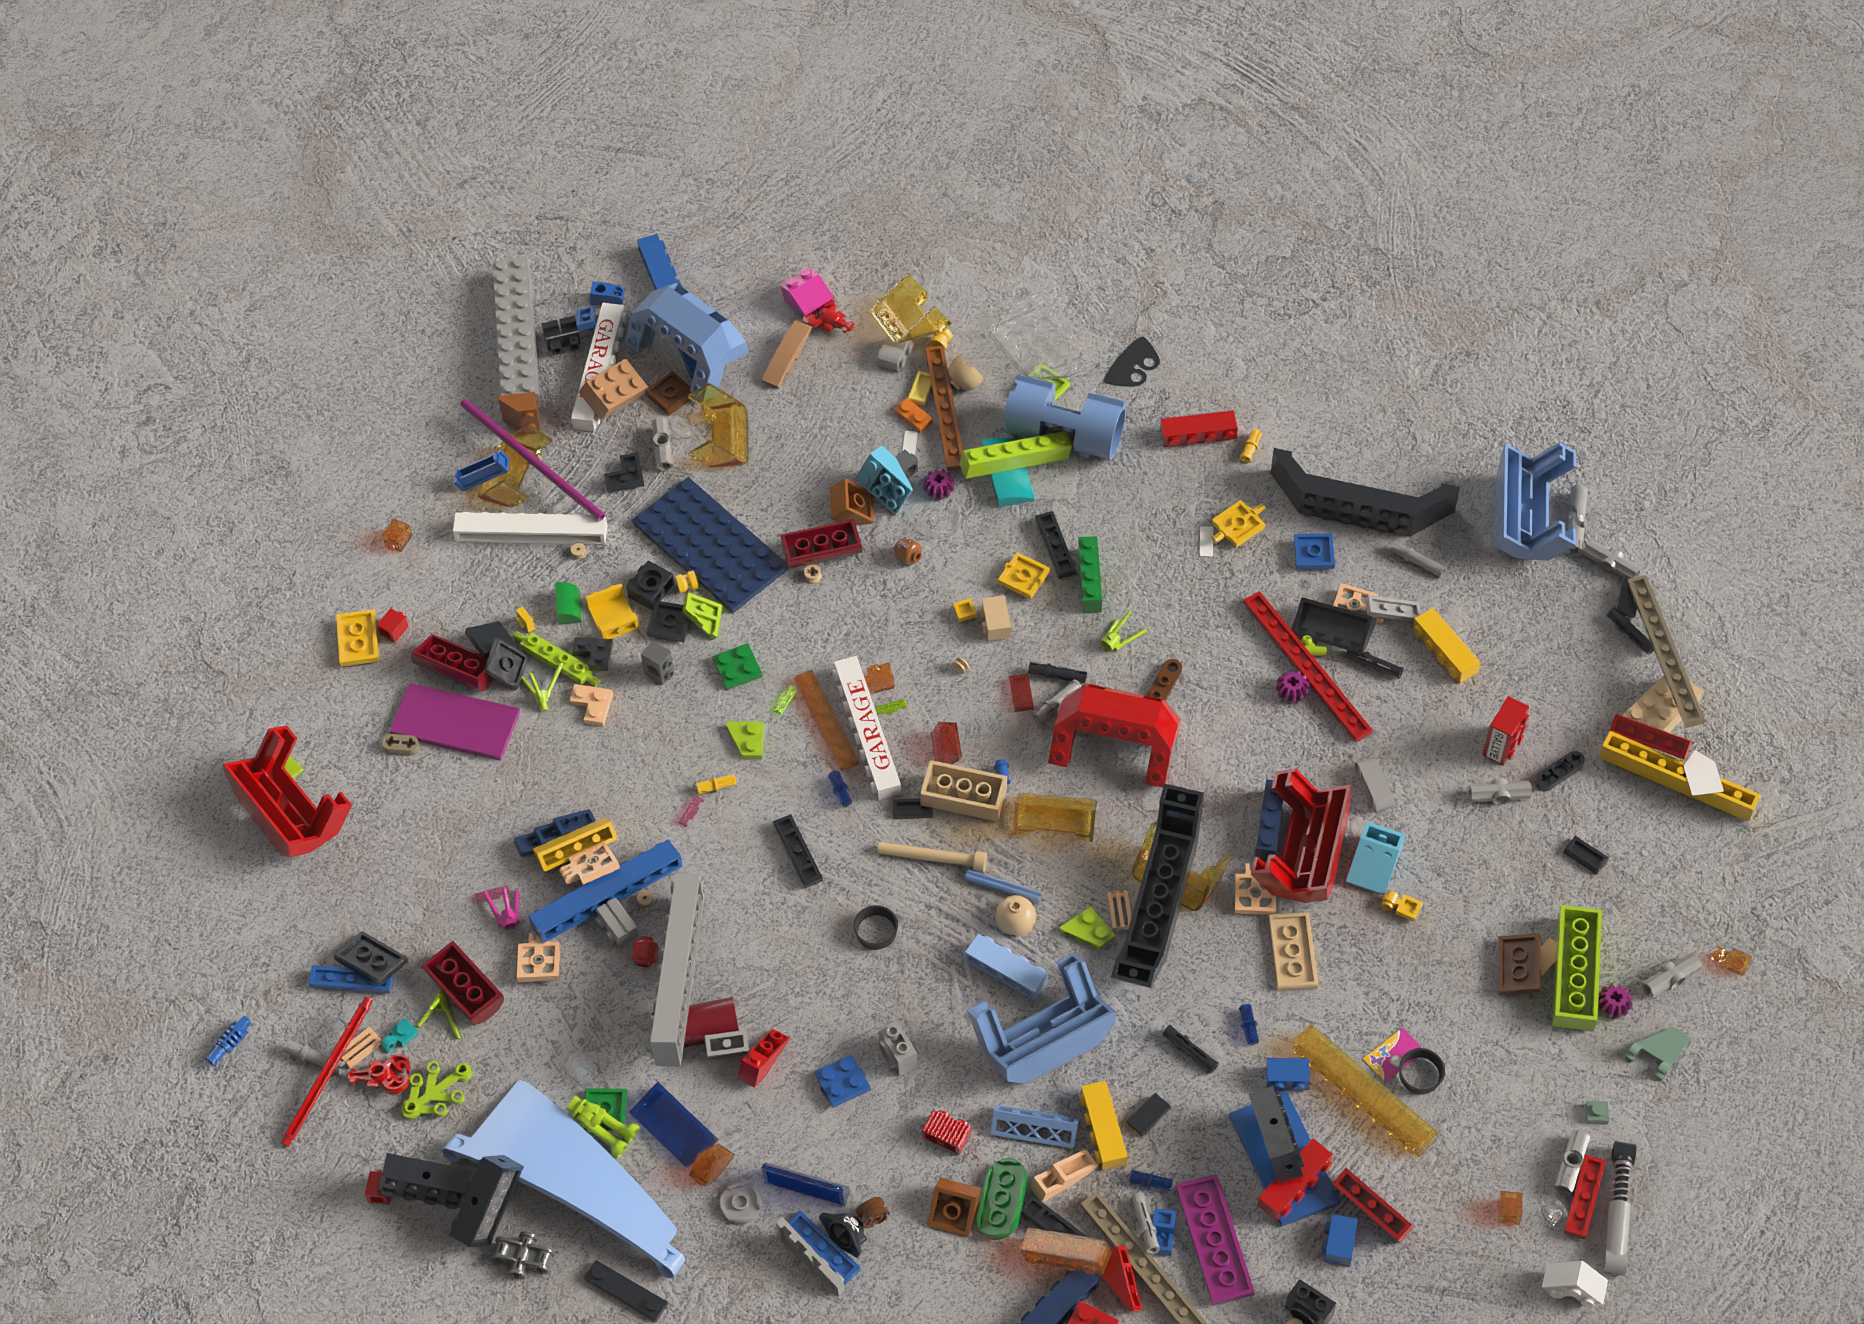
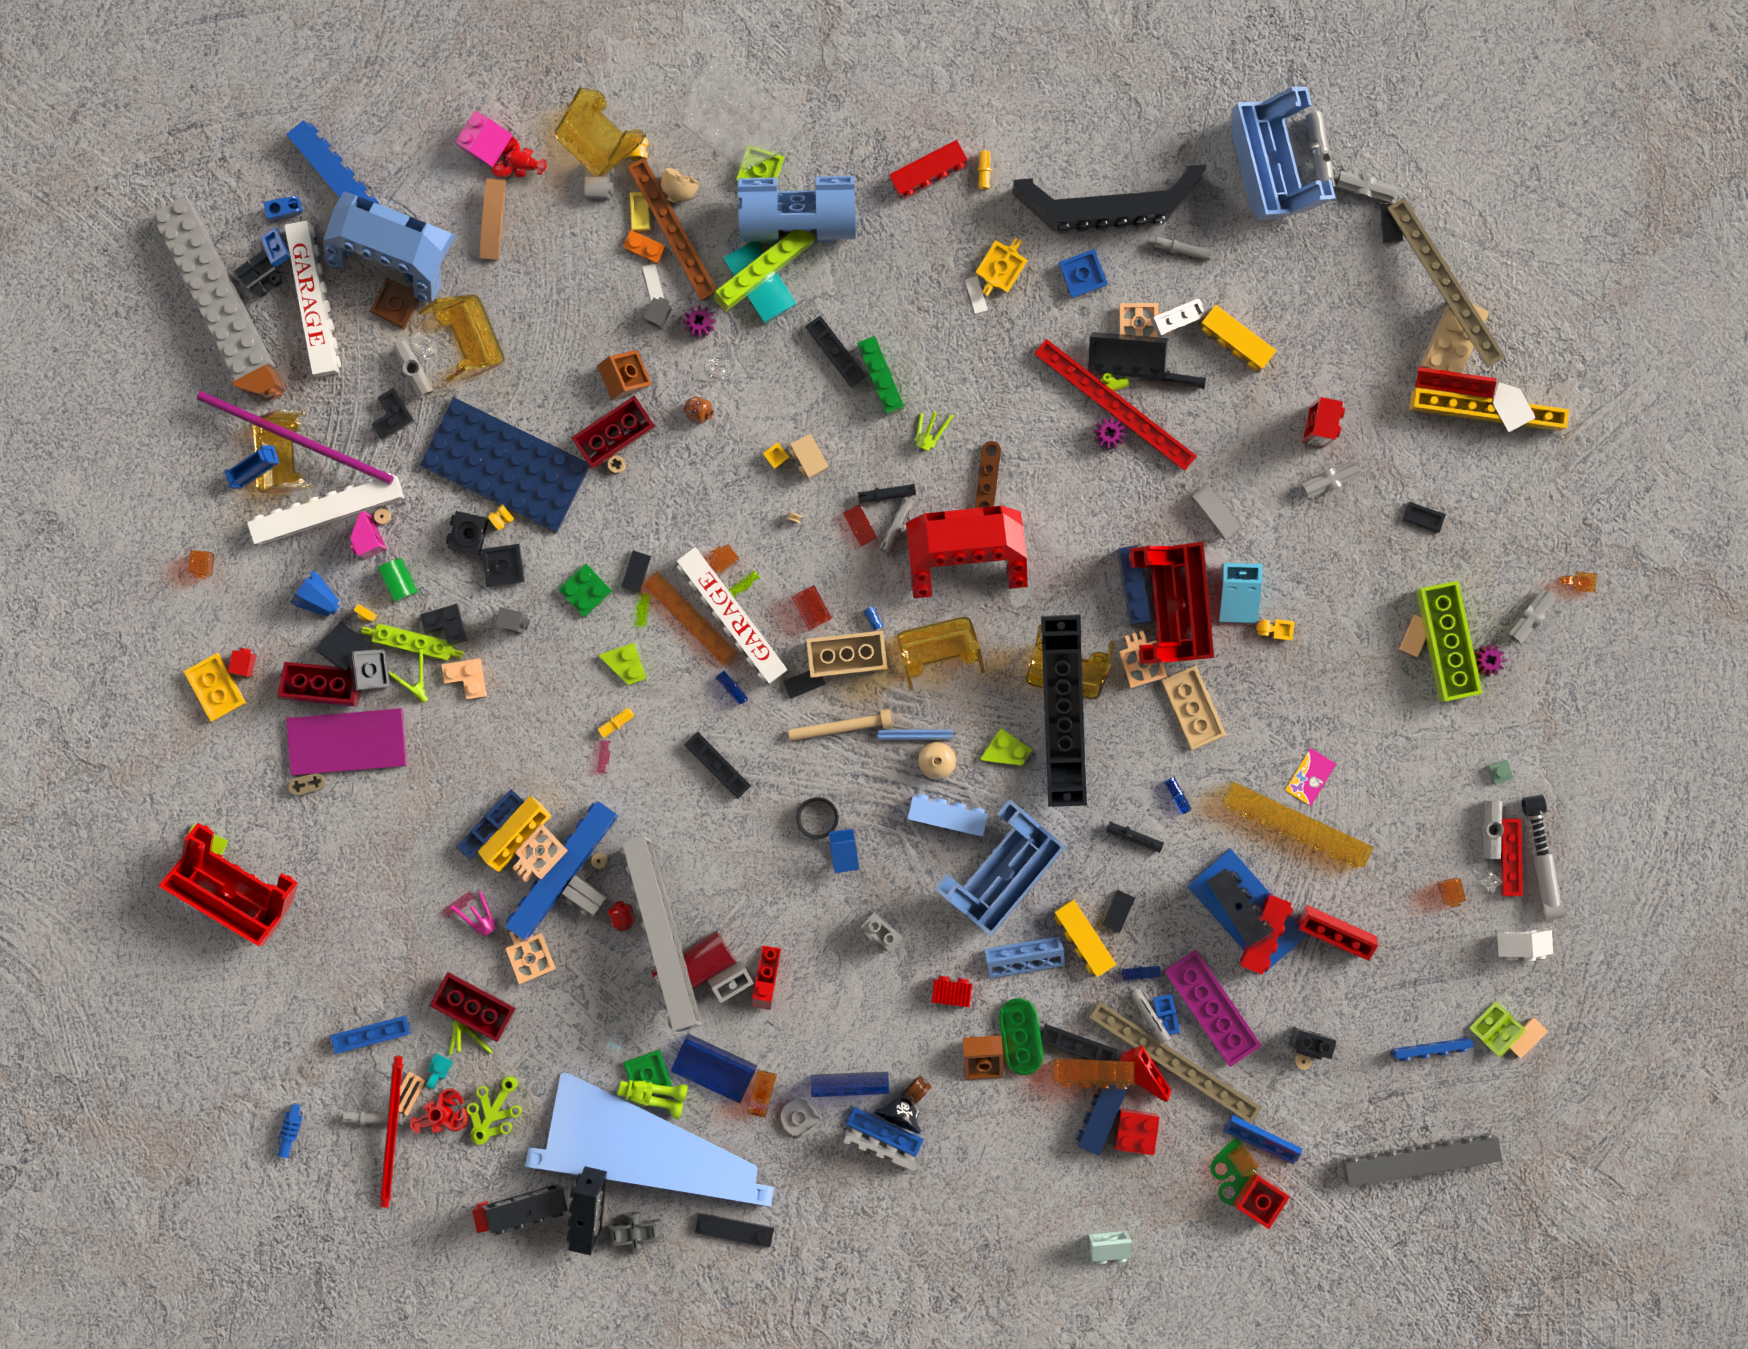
camera: 20 degrees left, 30 degrees up
(370, 958) = (379, 1010): black tile -> none
(486, 589) = (316, 596): none -> blue cone
(555, 557) = (366, 537): none -> dark pink slope
(612, 612) = (444, 575): yellow panel -> none
(613, 389) = (340, 328): medium nougat brick -> none
(703, 613) = (532, 549): lime wing -> none
(792, 665) = (636, 571): none -> black tile
(842, 1081) = (843, 974): blue plate -> none
(885, 479) = (648, 340): medium azure slope -> none
(889, 960) = (843, 850): none -> blue piece
(1023, 575) = (817, 397): yellow plate -> none
(1063, 1175) = (1065, 995): light nougat slope -> none
(1117, 895) = (1034, 735): light nougat tile -> none
(1123, 367) = (828, 116): black piece -> none
(1288, 1074) = (1227, 833): blue brick -> none
(1340, 1241) = (1318, 972): blue brick -> none
(1429, 1055) = (1359, 789): black tyre -> none
(1519, 964) = (1397, 654): reddish brown plate -> none
(1563, 763) = (1374, 451): black beam -> none
(1624, 624) = (1395, 255): black pin -> none
(1663, 1047) = (1540, 689): sand green flag -> none

